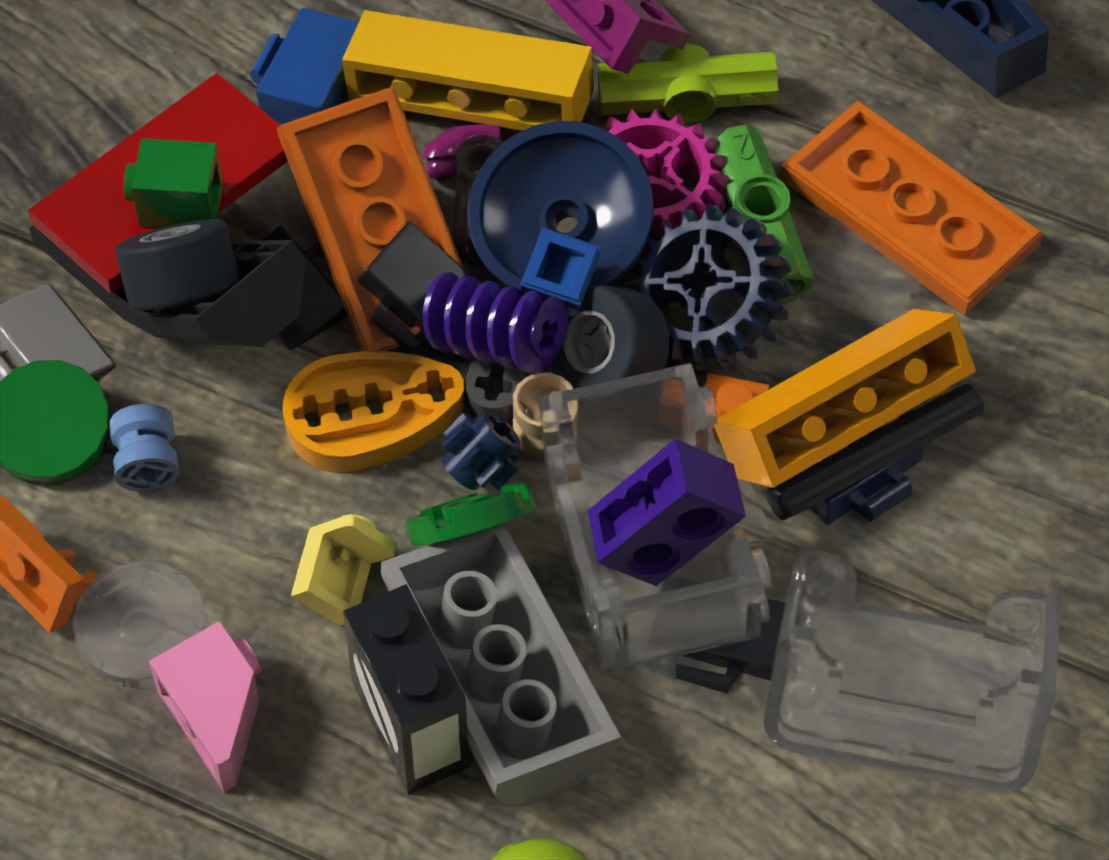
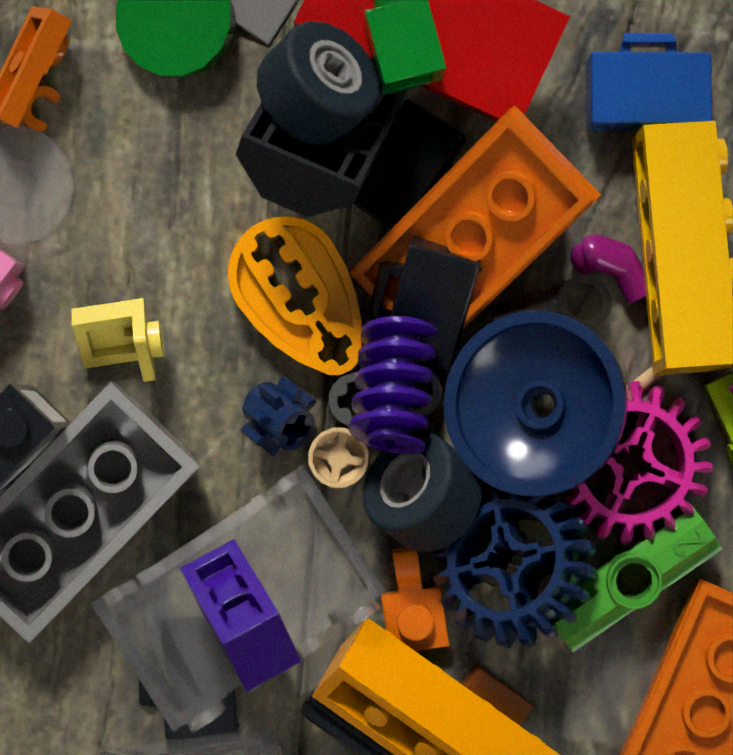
camera: 70 degrees right, 30 degrees up
(143, 442) = (165, 124): medium blue wheel -> none
(469, 514) = (198, 436): green tile -> none
(561, 267) = (459, 431): blue slope -> none

